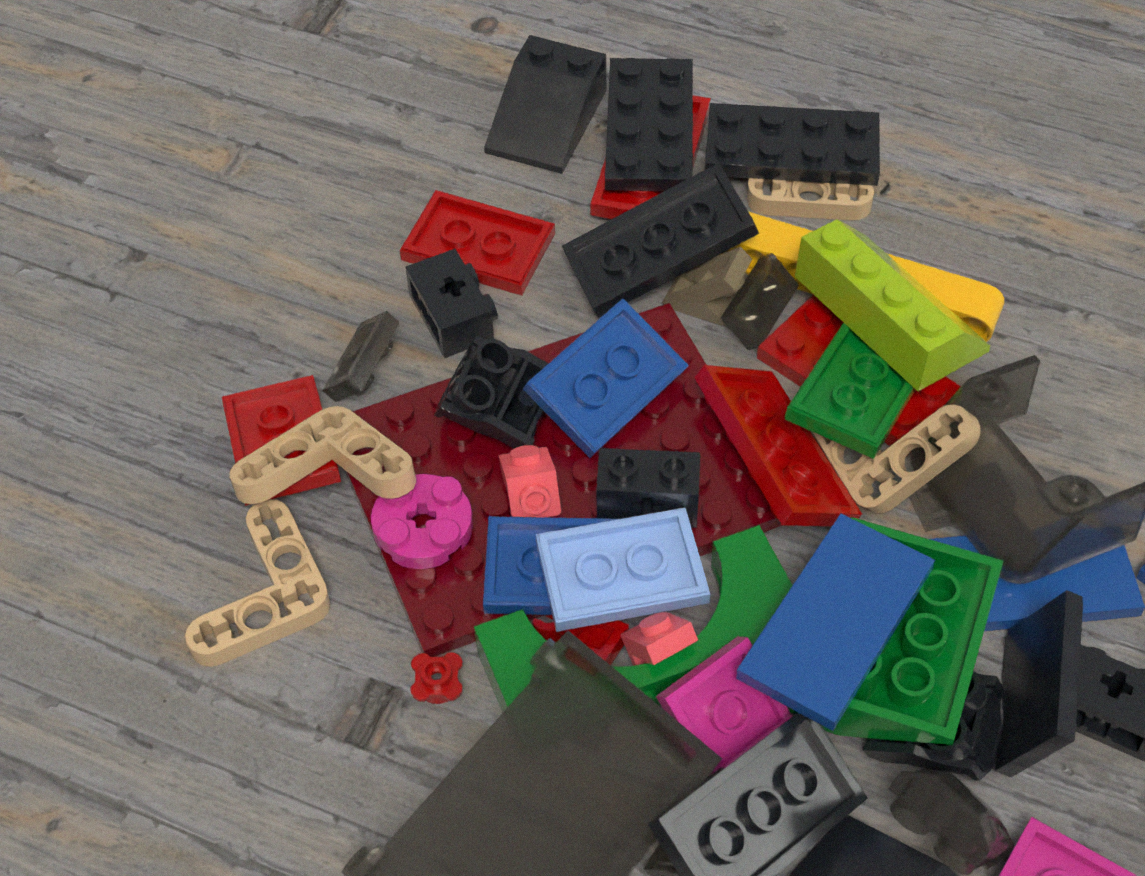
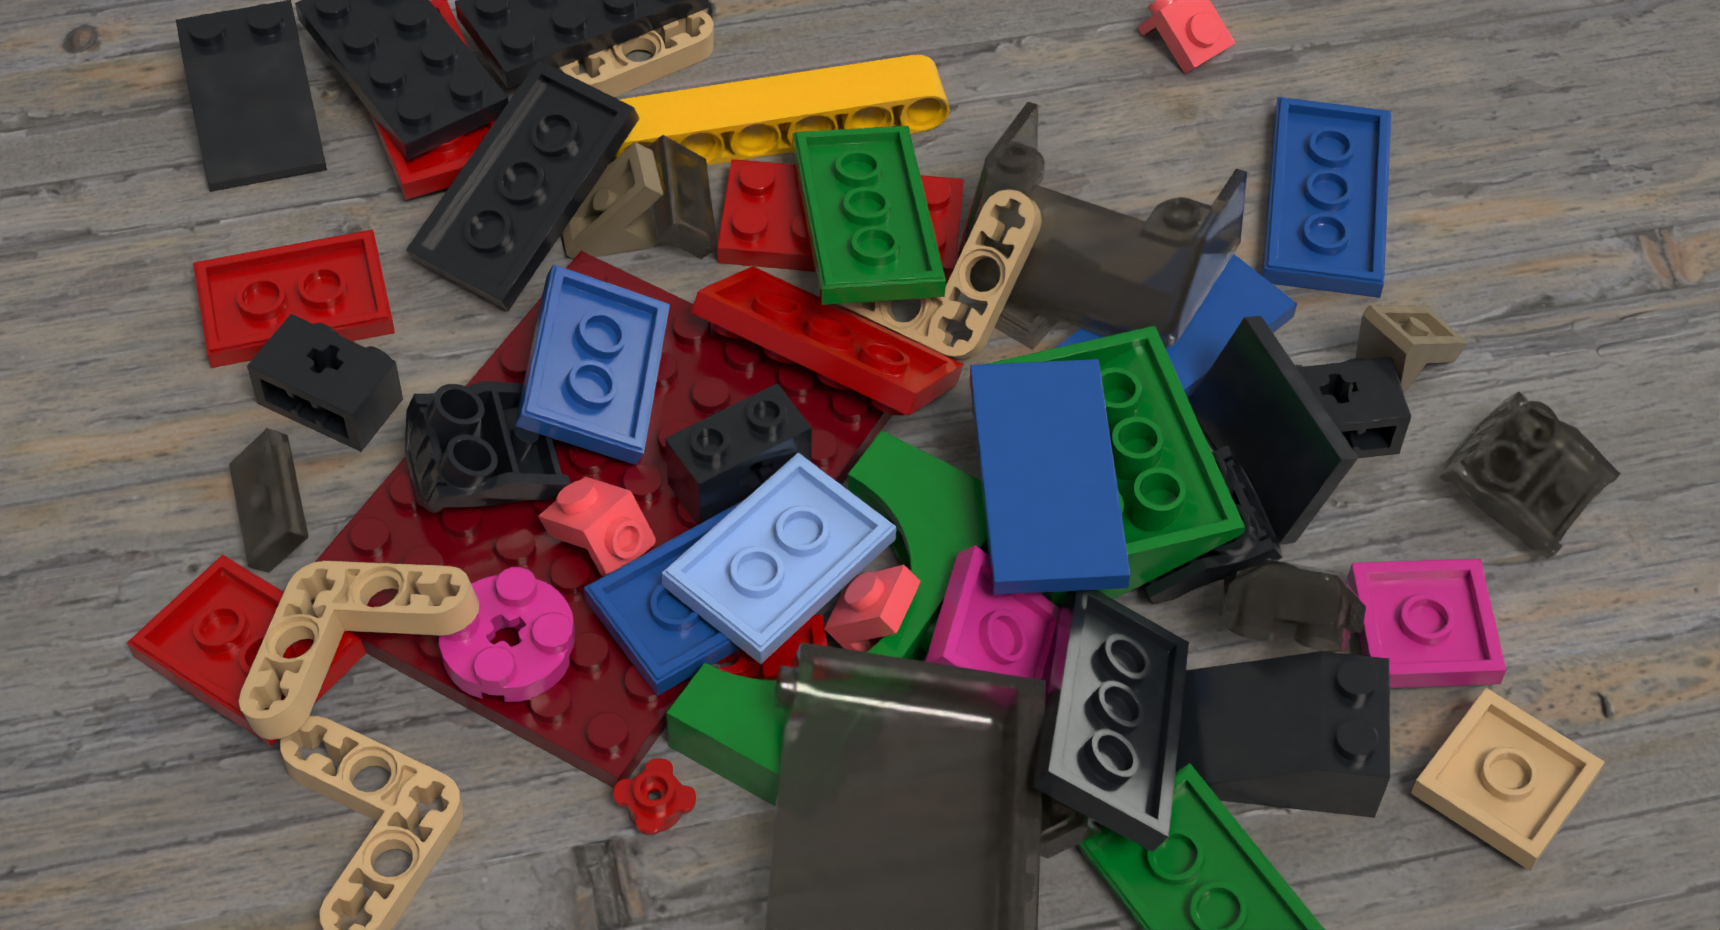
camera: 40 degrees left, 0 degrees up
(885, 305) = (834, 128): lime slope -> none

